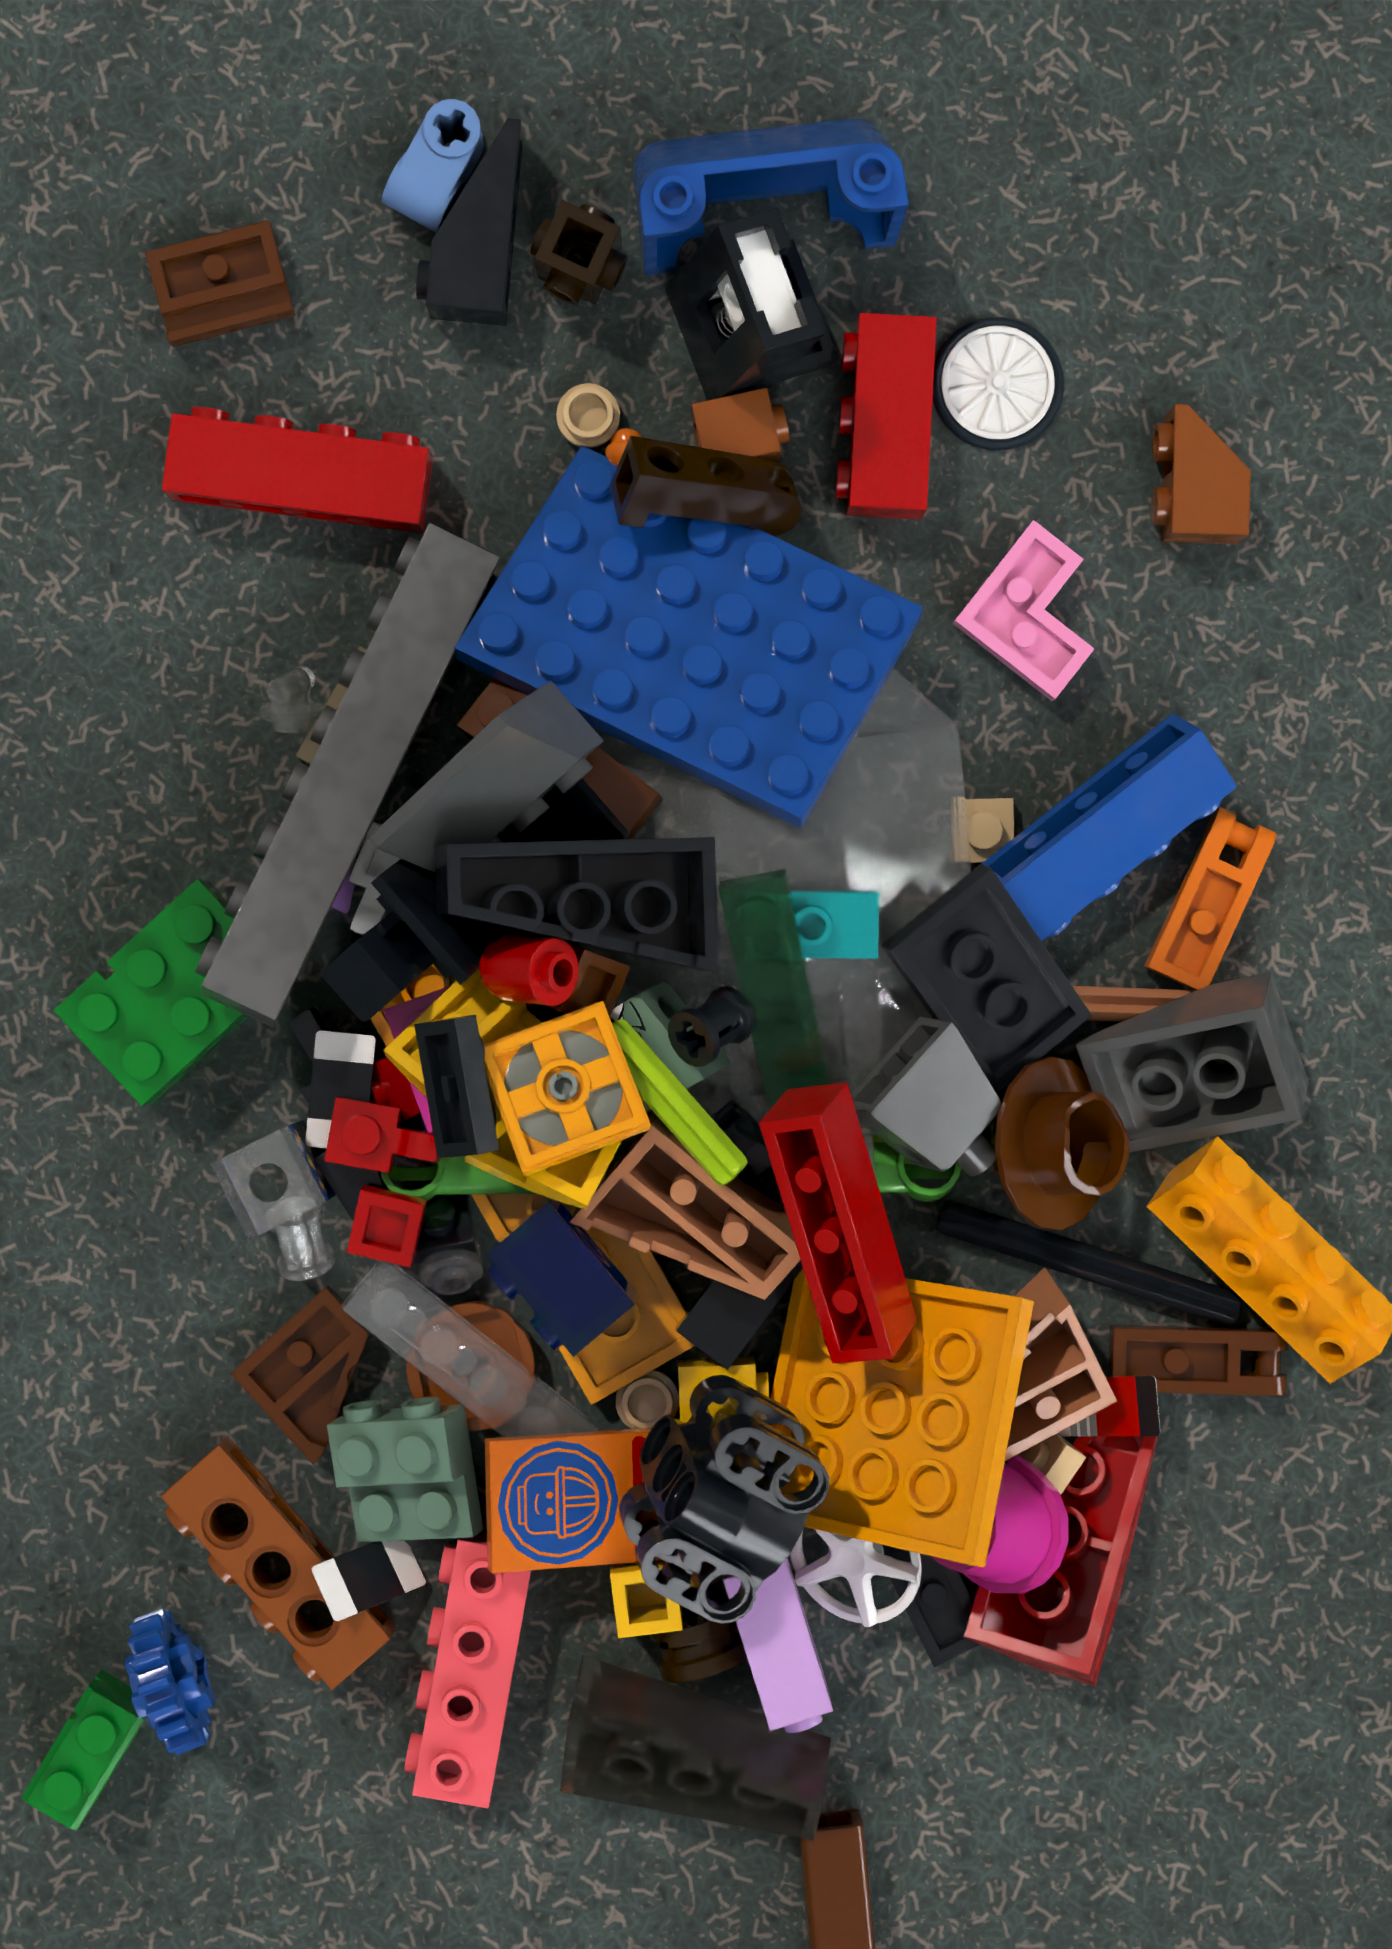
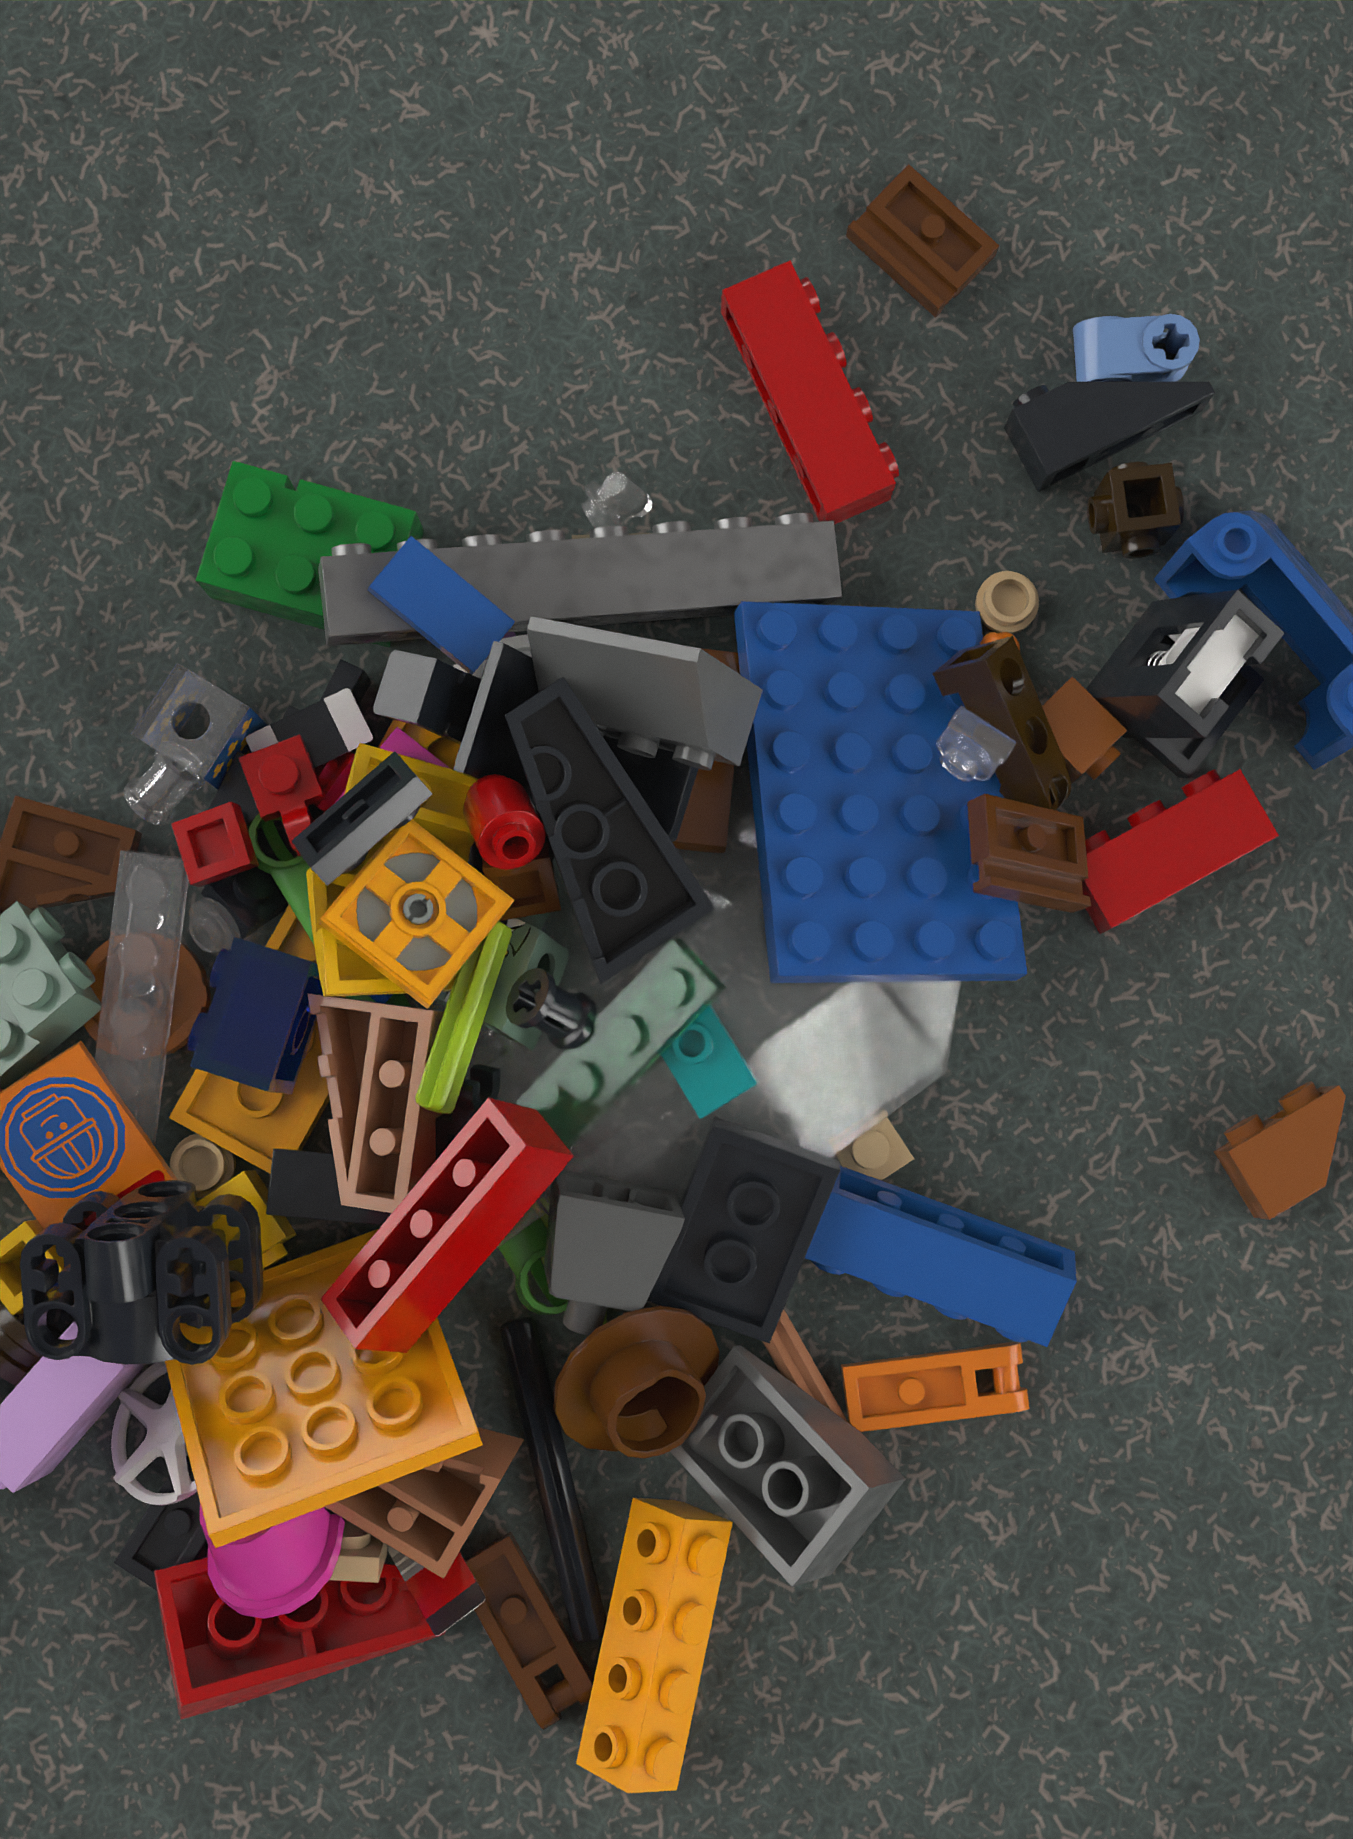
camera: 60 degrees right, 5 degrees down
(307, 908) = (440, 605): none -> blue tile
(704, 530) = (972, 747): none -> clear plate
(823, 541) = (1028, 853): none -> reddish brown plate
(997, 383) = (1255, 927): white wheel -> none
(1011, 616) = (1070, 1057): bright pink plate -> none

